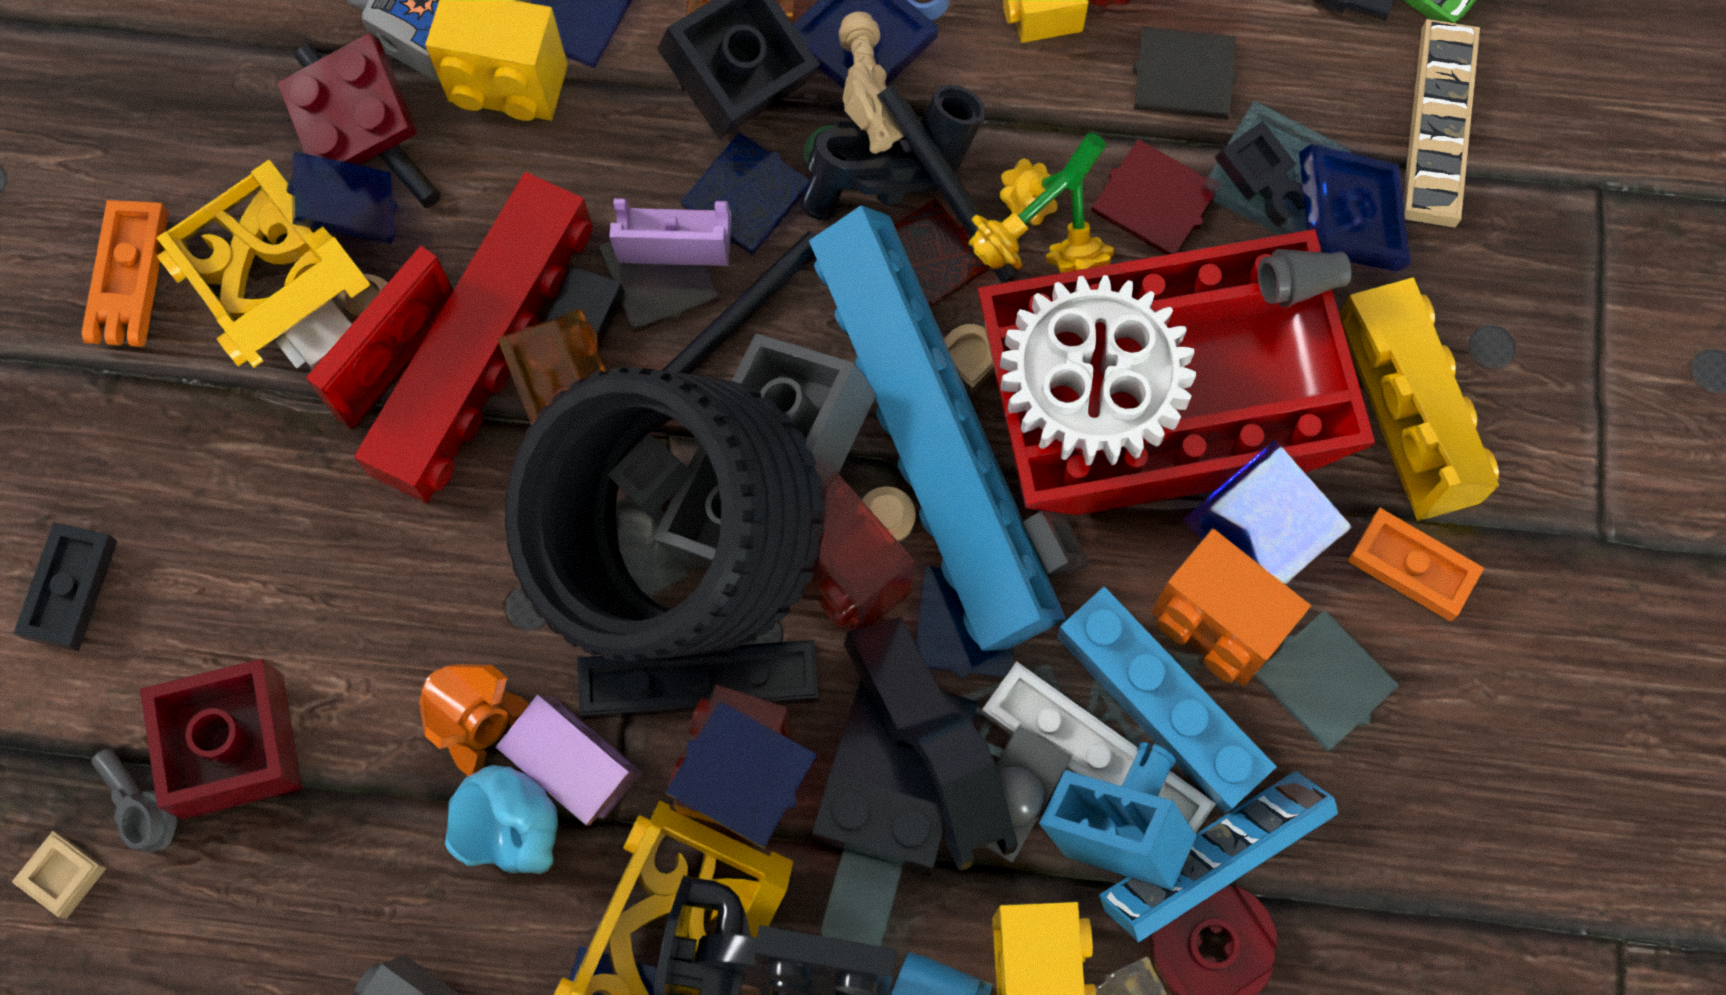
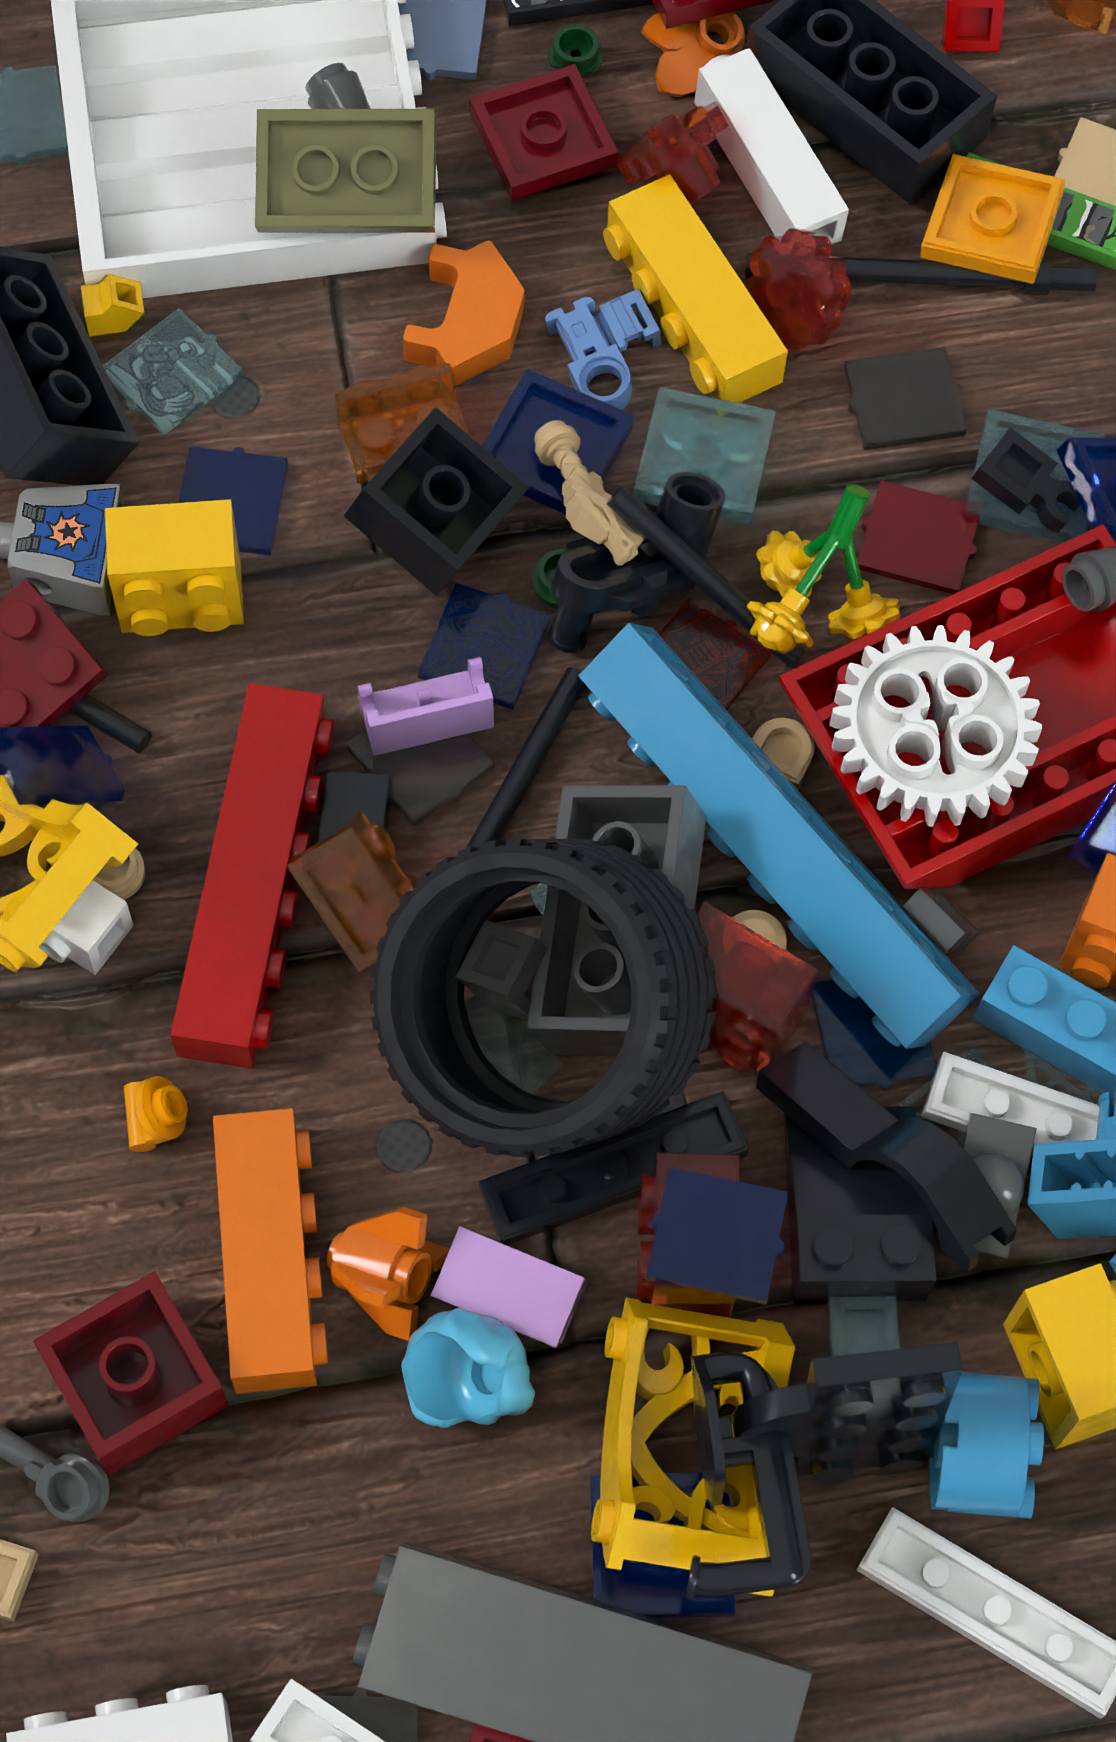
camera: 20 degrees left, 5 degrees down
(328, 518) = (153, 1113): none -> light orange plate
(375, 666) = (266, 1253): none -> orange brick
(382, 339) = (160, 901): red tile -> none
(997, 66) = (710, 439): none -> clear light blue plate

